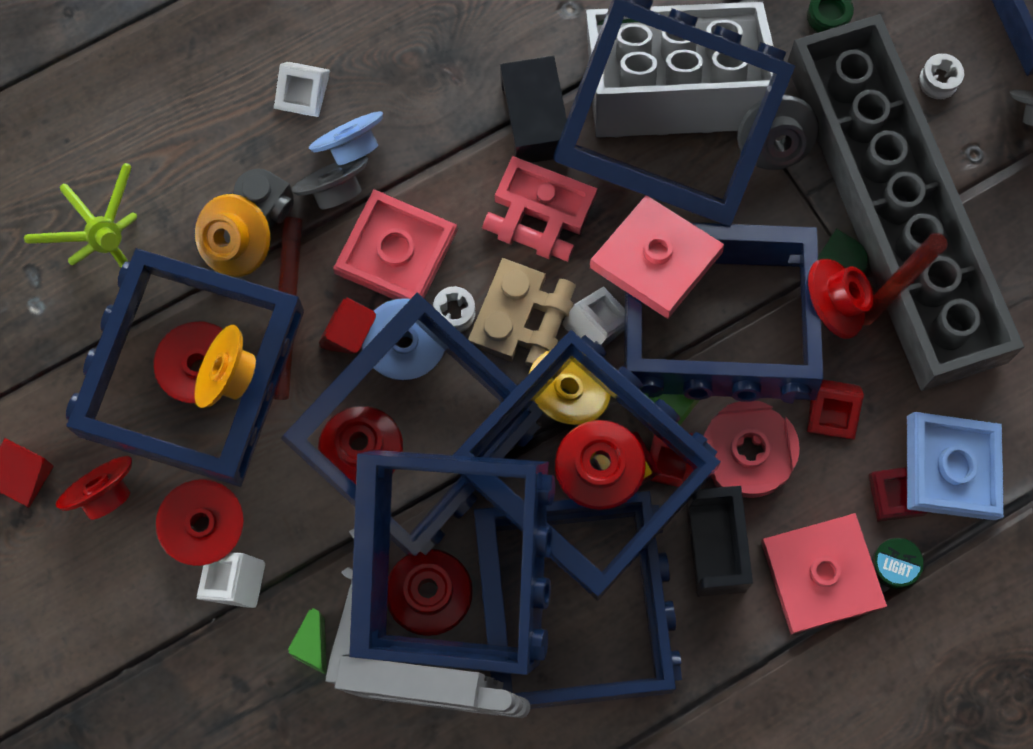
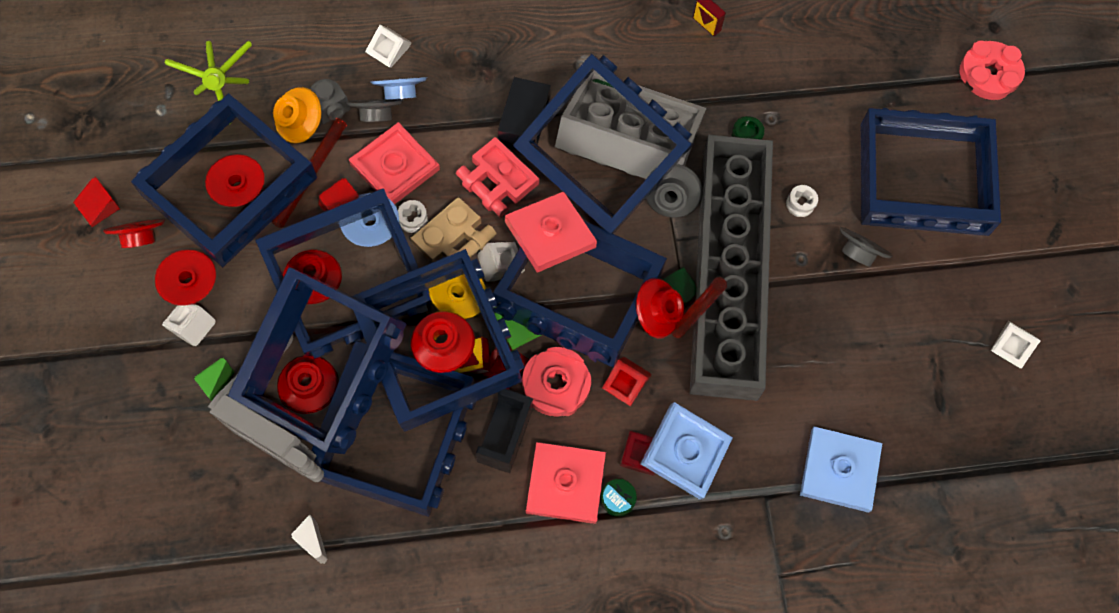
camera: 20 degrees right, 5 degrees down
(224, 369) = (241, 187): light orange piece -> none

